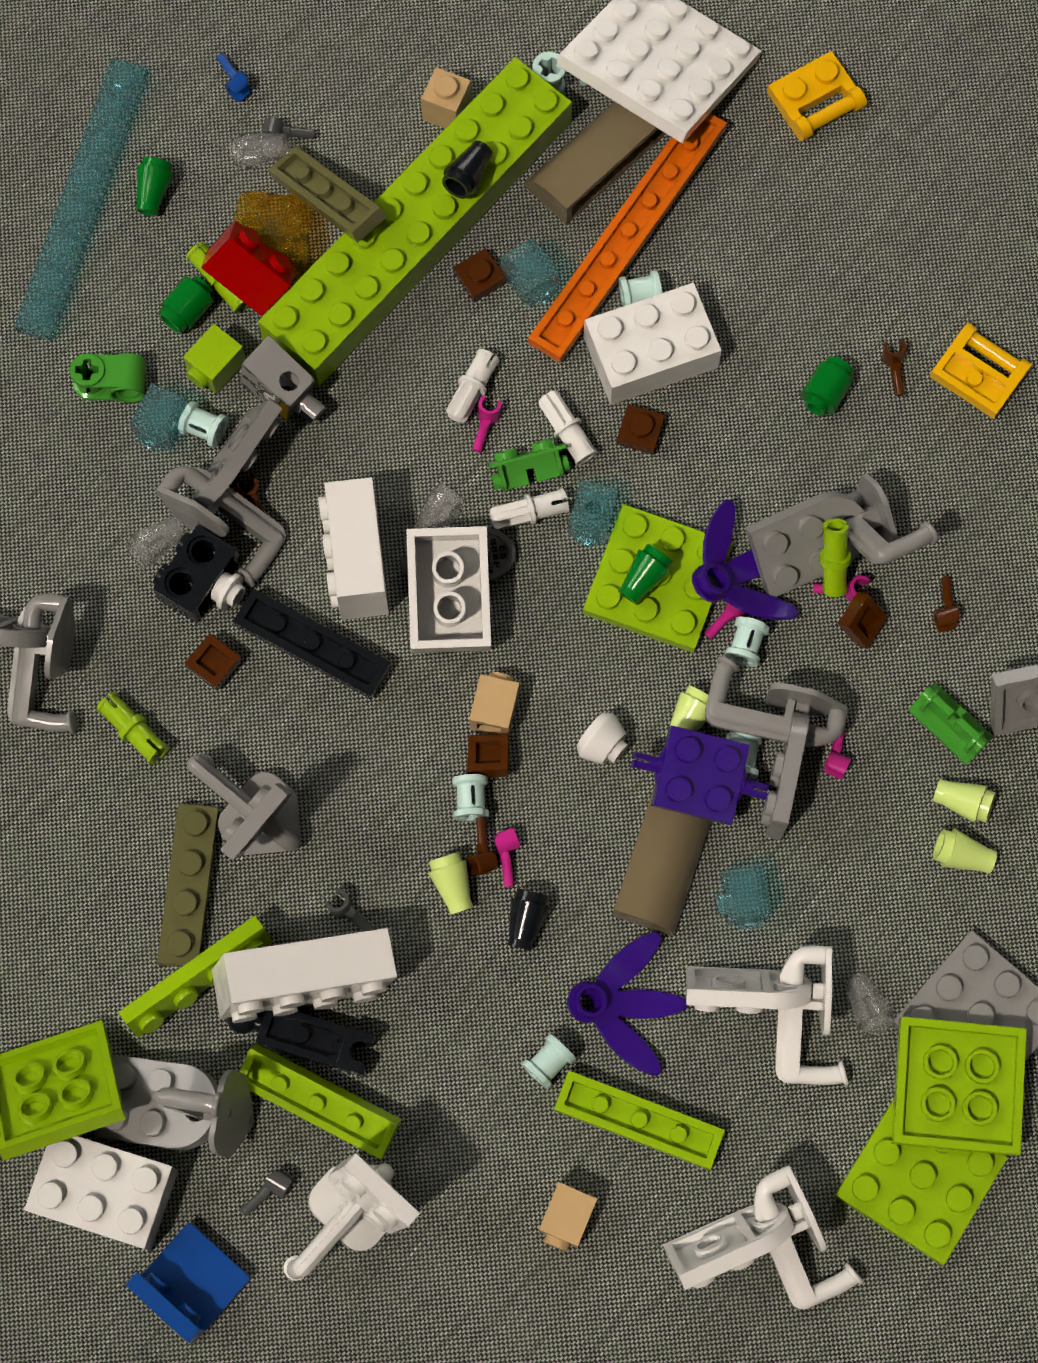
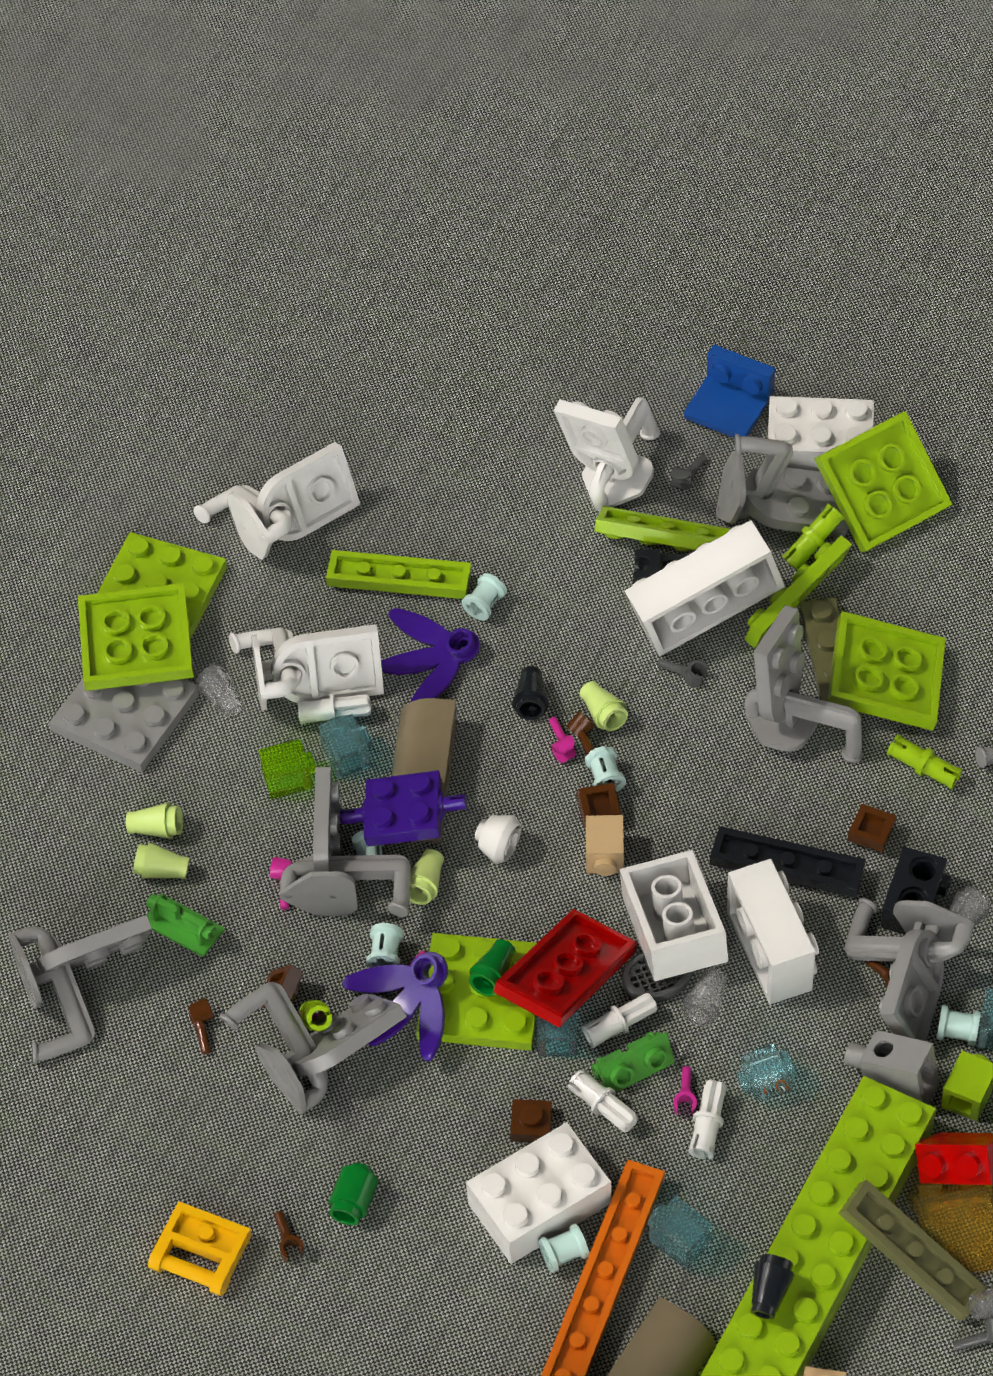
camera: 170 degrees right, 20 degrees down
(135, 839) = (887, 670): none -> lime plate
(156, 1042) = (813, 537): none -> lime pin
(228, 591) = (879, 885): white plate -> none
(402, 416) = (766, 1072): none -> clear light blue head
(479, 275) = (734, 1235): reddish brown plate -> none
(566, 1217) = (441, 499): tan brick -> none
(571, 559) = (565, 967): none -> red tile
(746, 951) = (333, 707): none -> white axle
(812, 882) = (286, 768): none -> clear neon green brick

